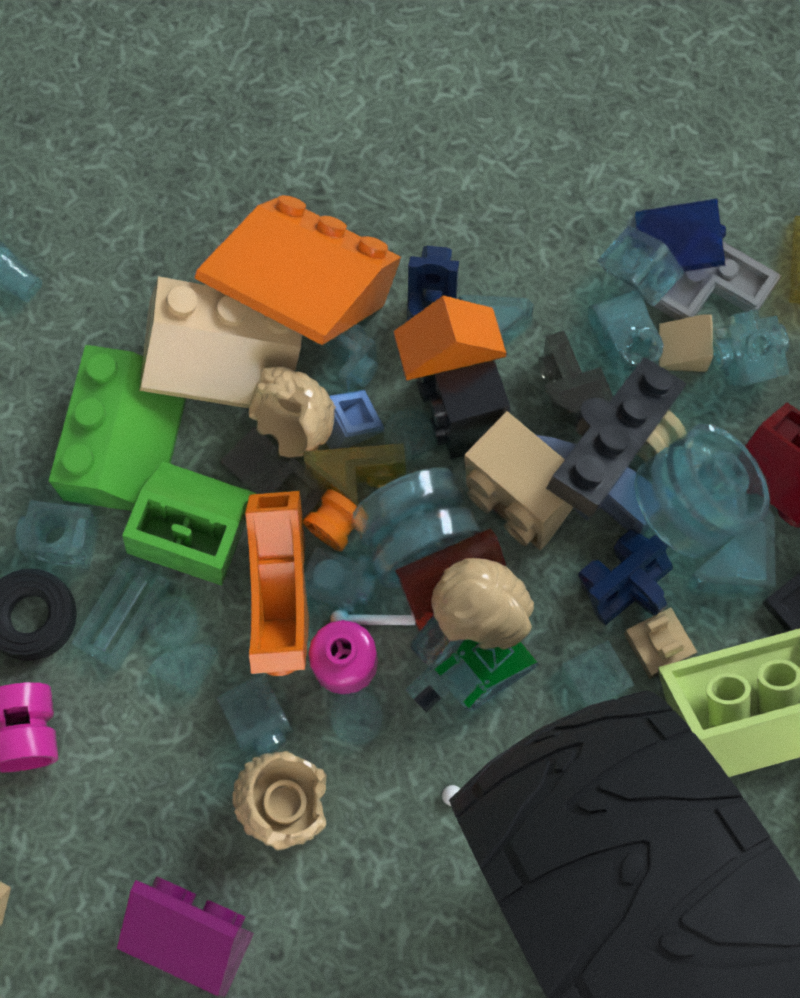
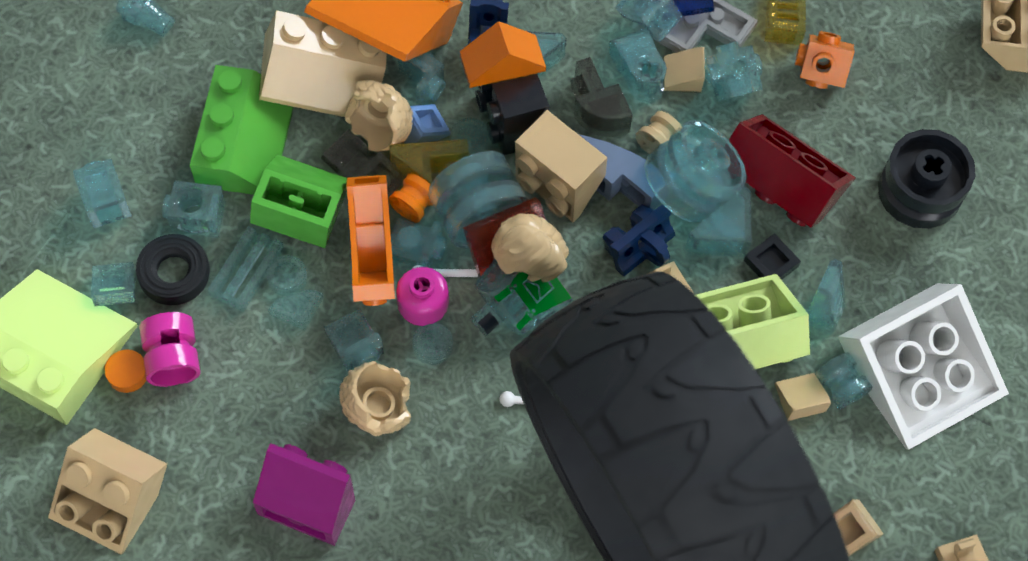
camera: 10 degrees left, 5 degrees down
(614, 435) = (629, 128): black hinge -> none

